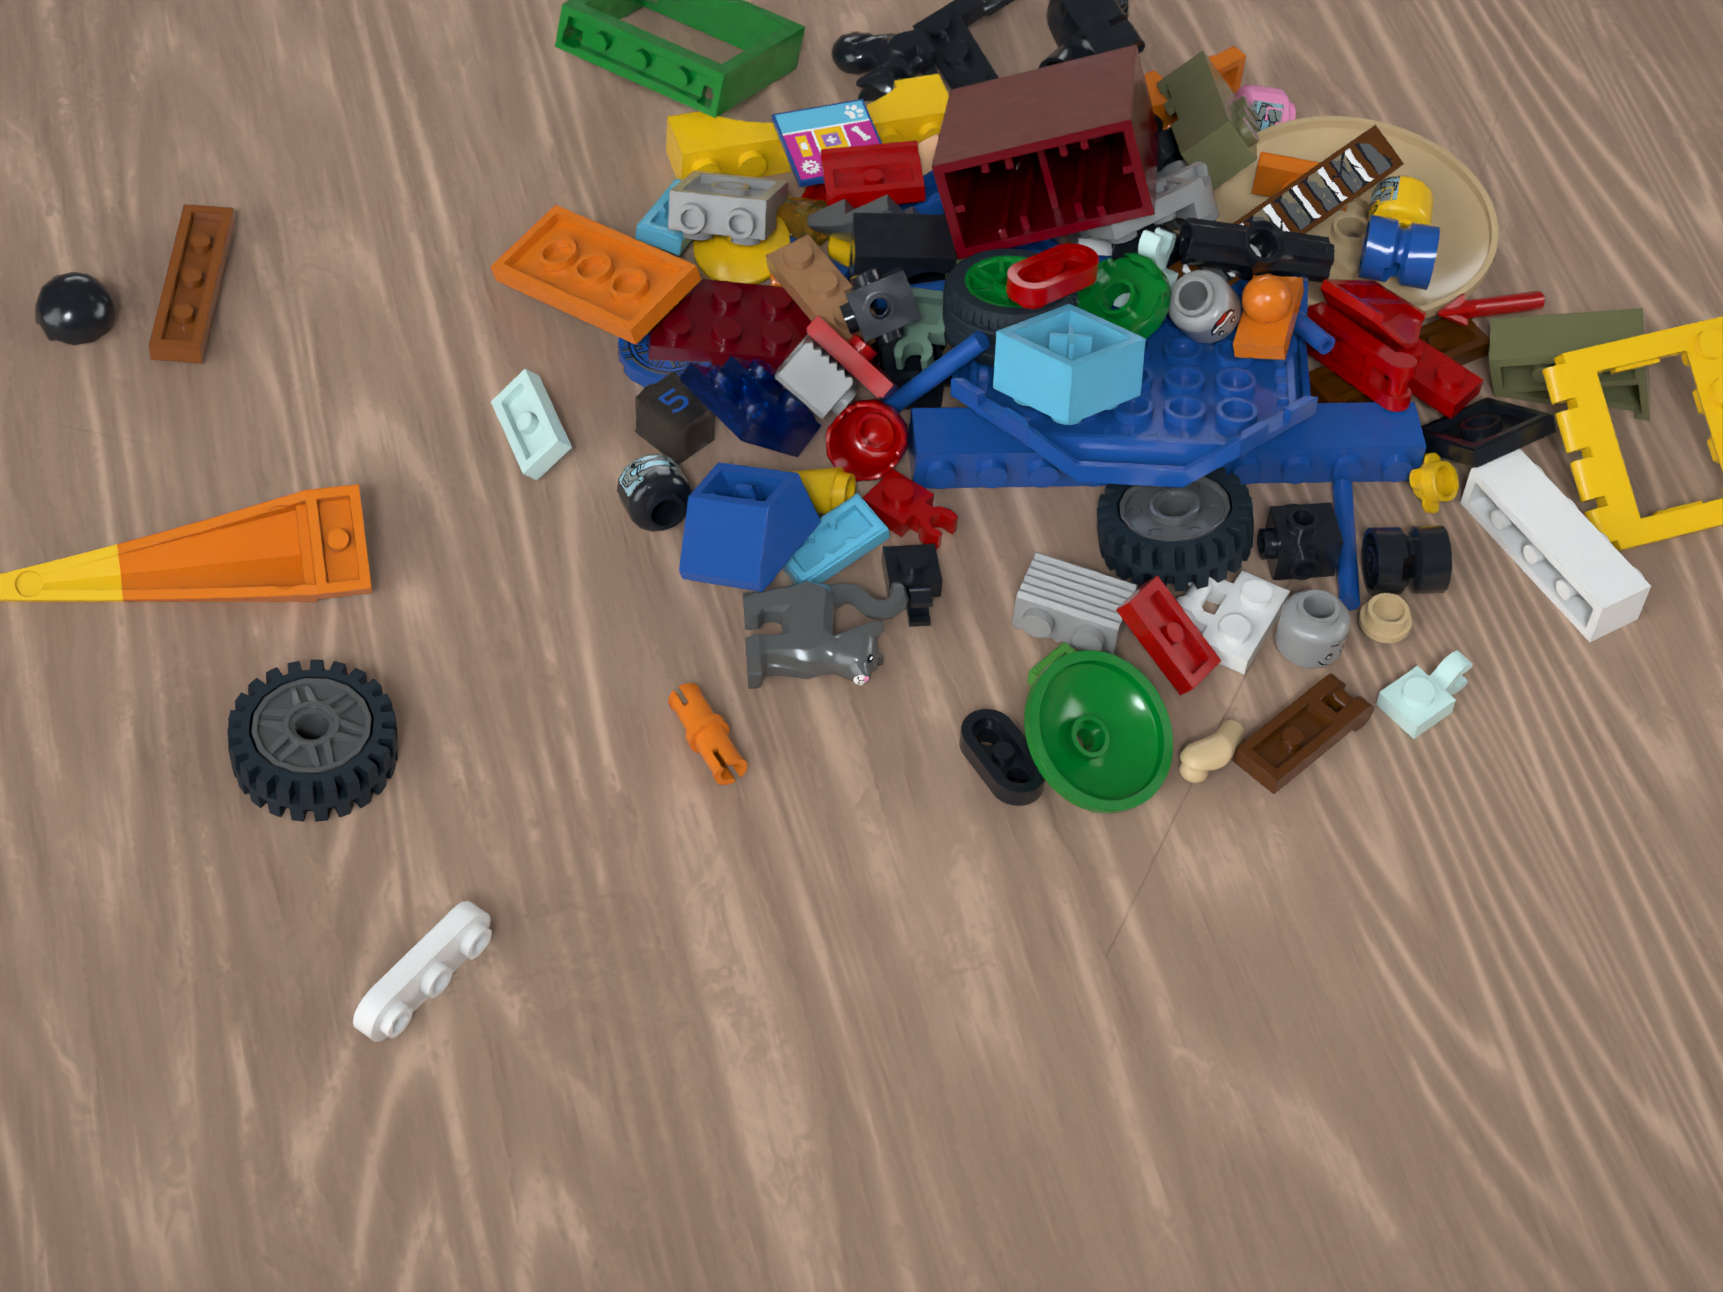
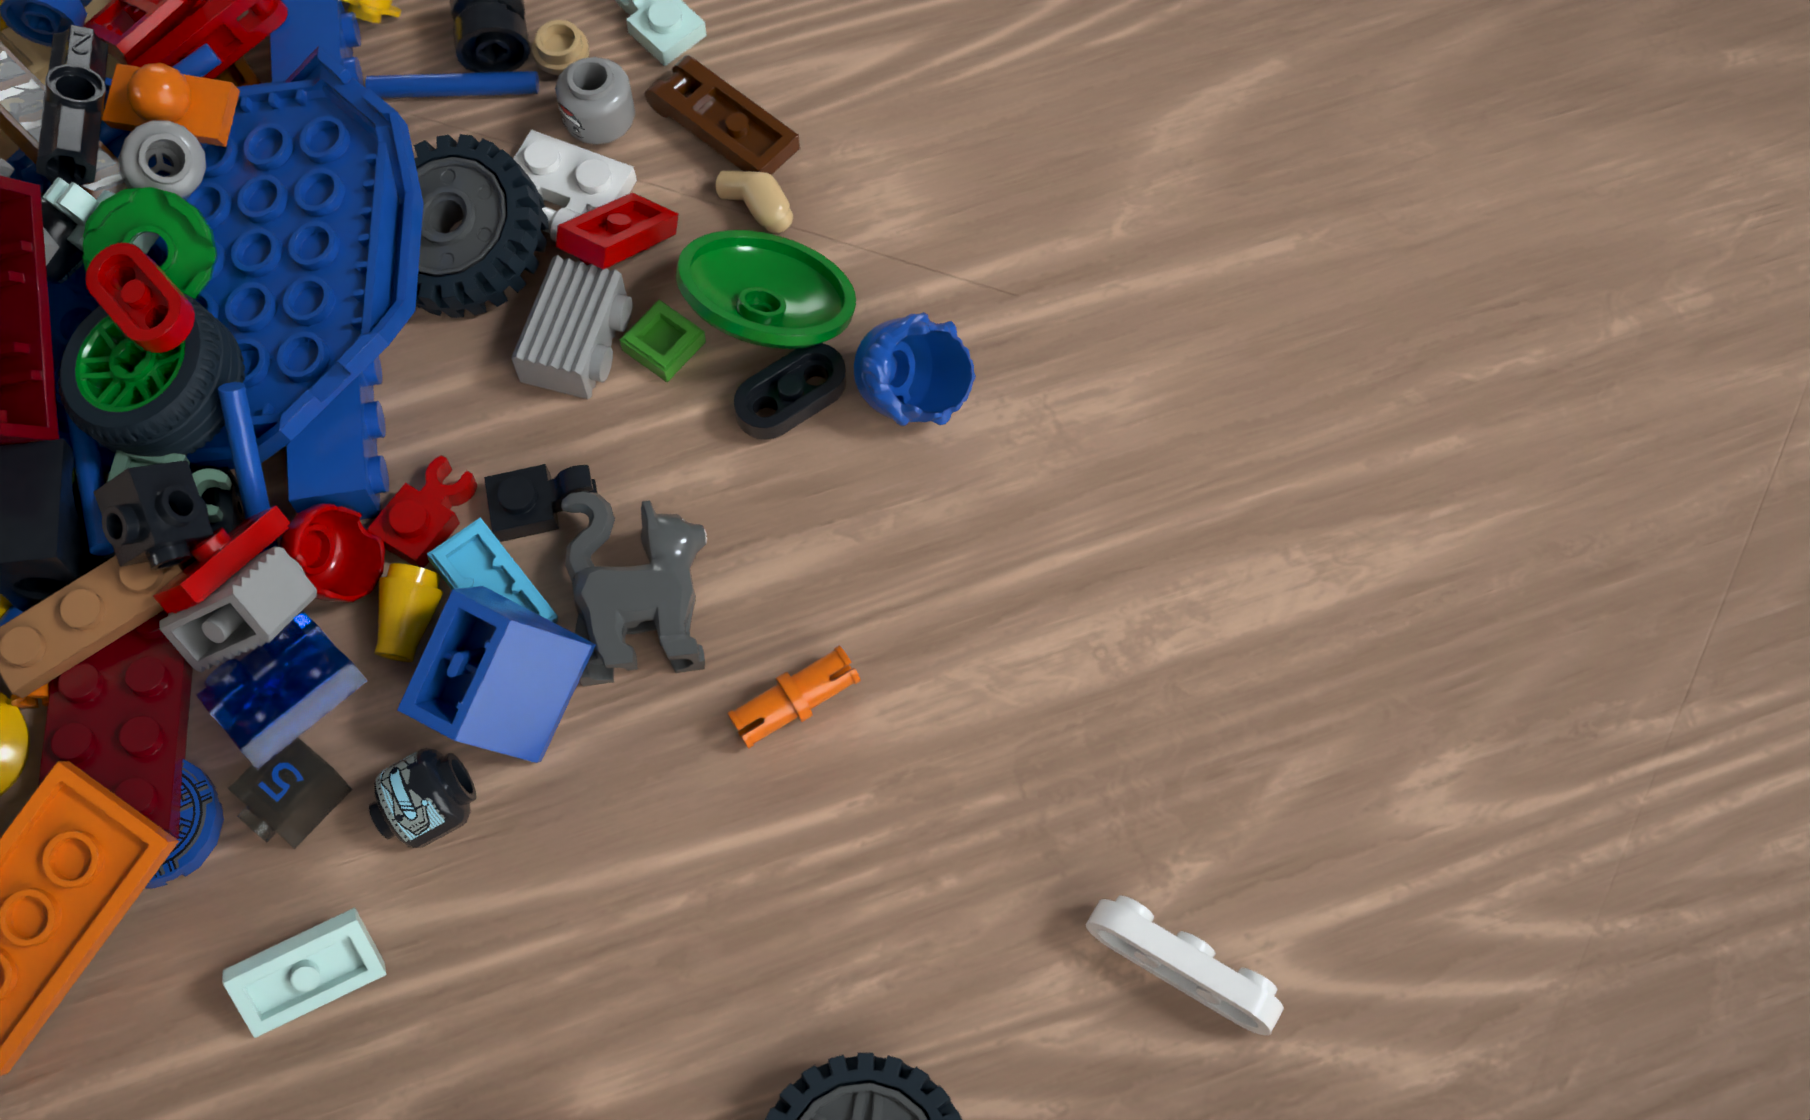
camera: 90 degrees left, 15 degrees up
(1006, 834) = (914, 370): none -> blue hair
(1068, 364) = (275, 289): medium azure brick -> none
(1300, 541) = (470, 104): black brick -> none

